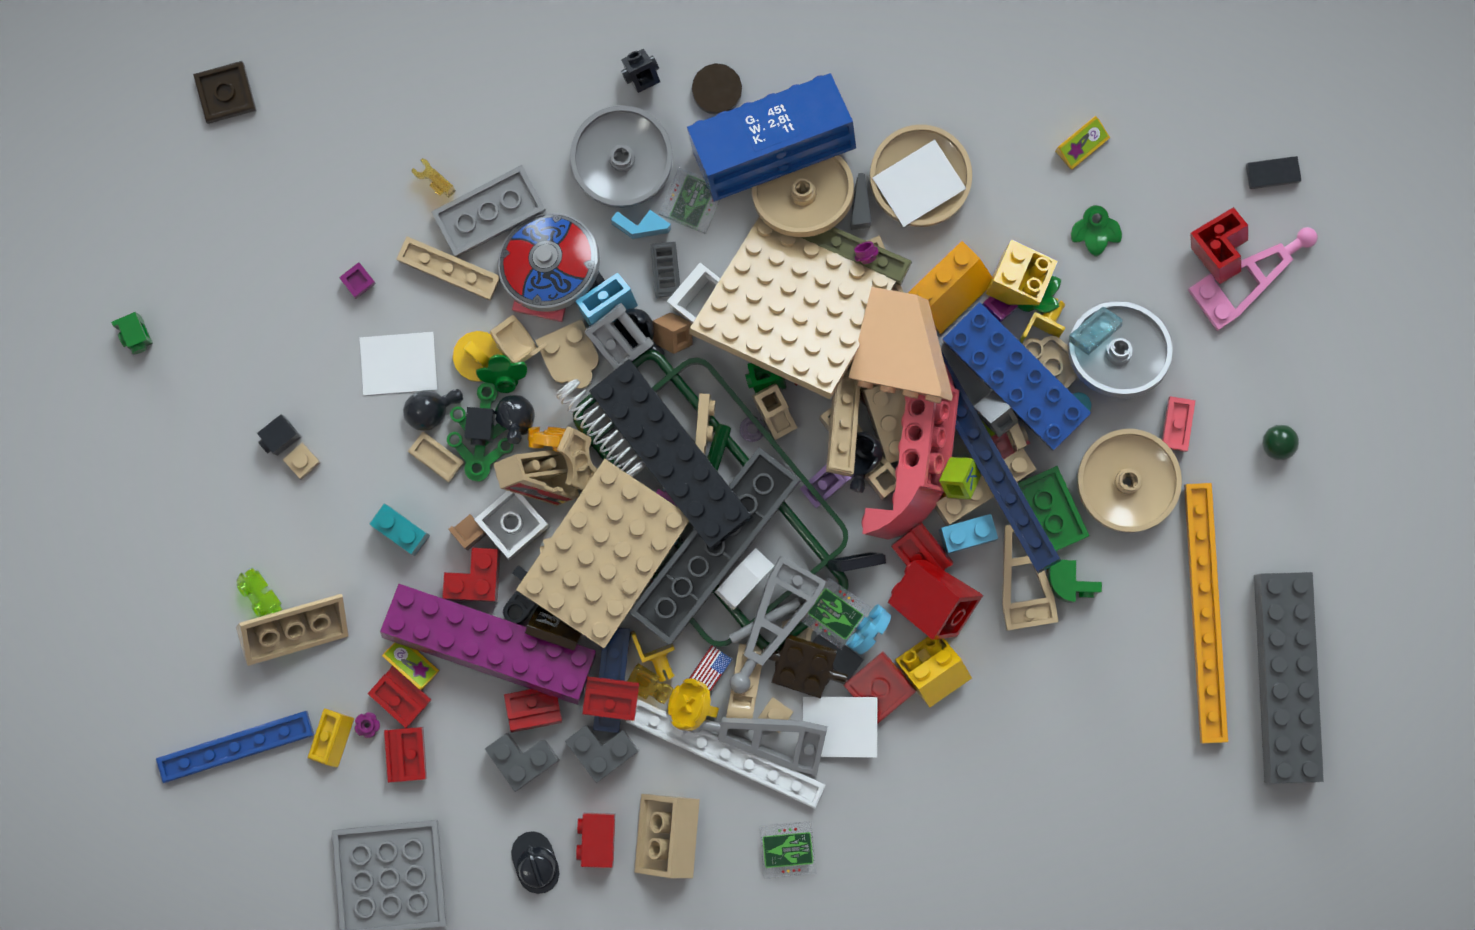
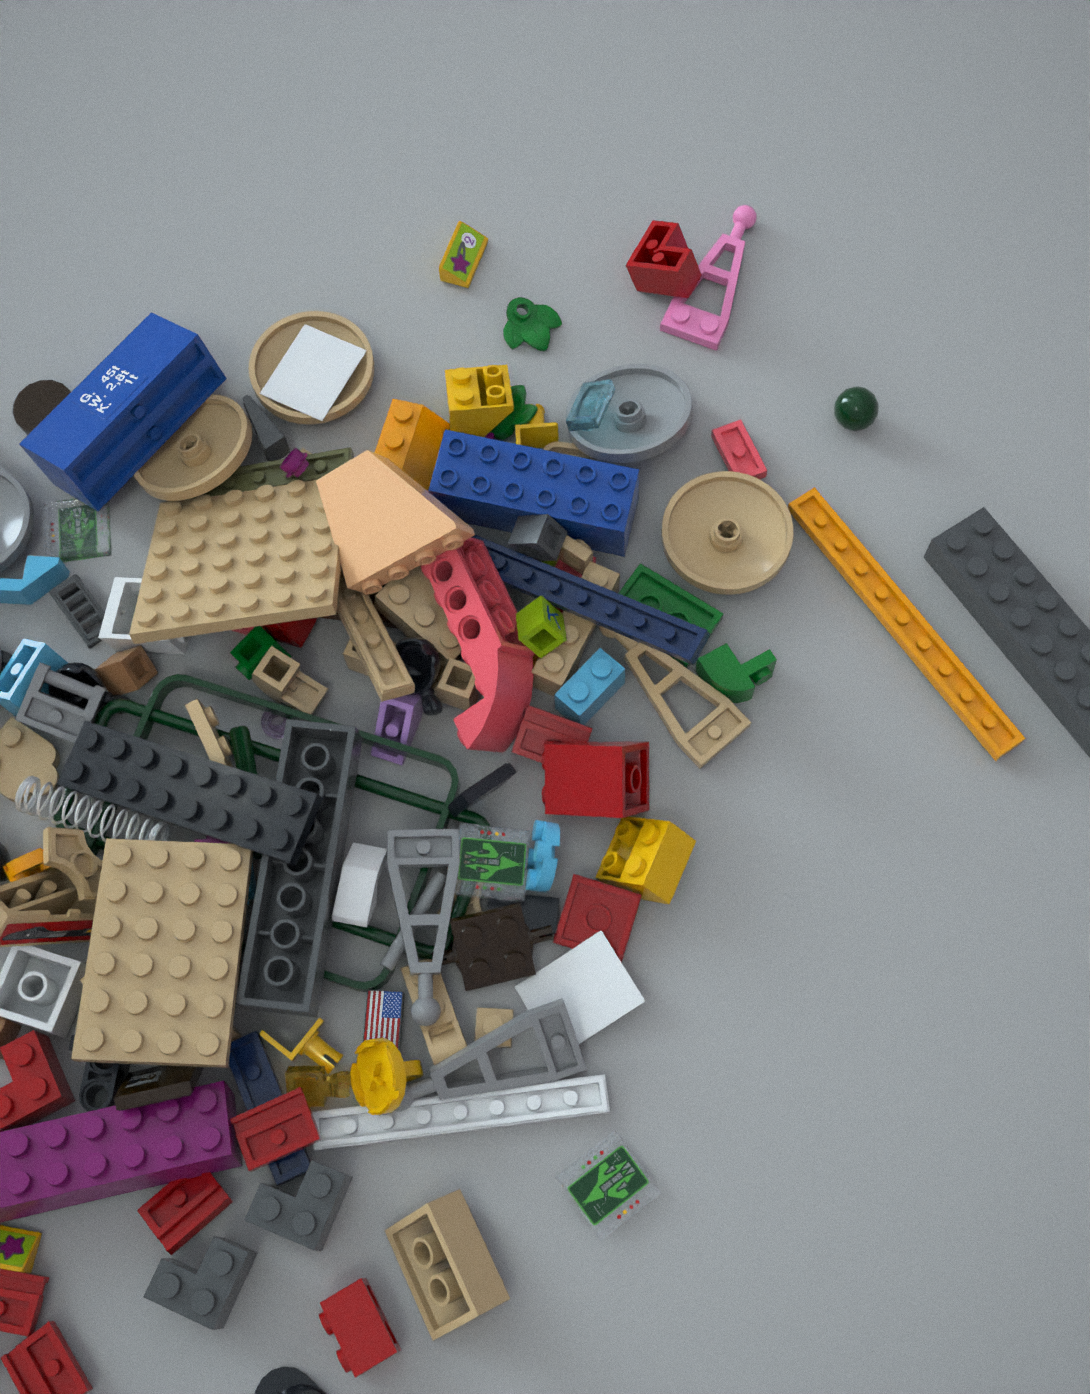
camera: 25 degrees left, 15 degrees down
(1273, 172) = (670, 183): black tile -> none

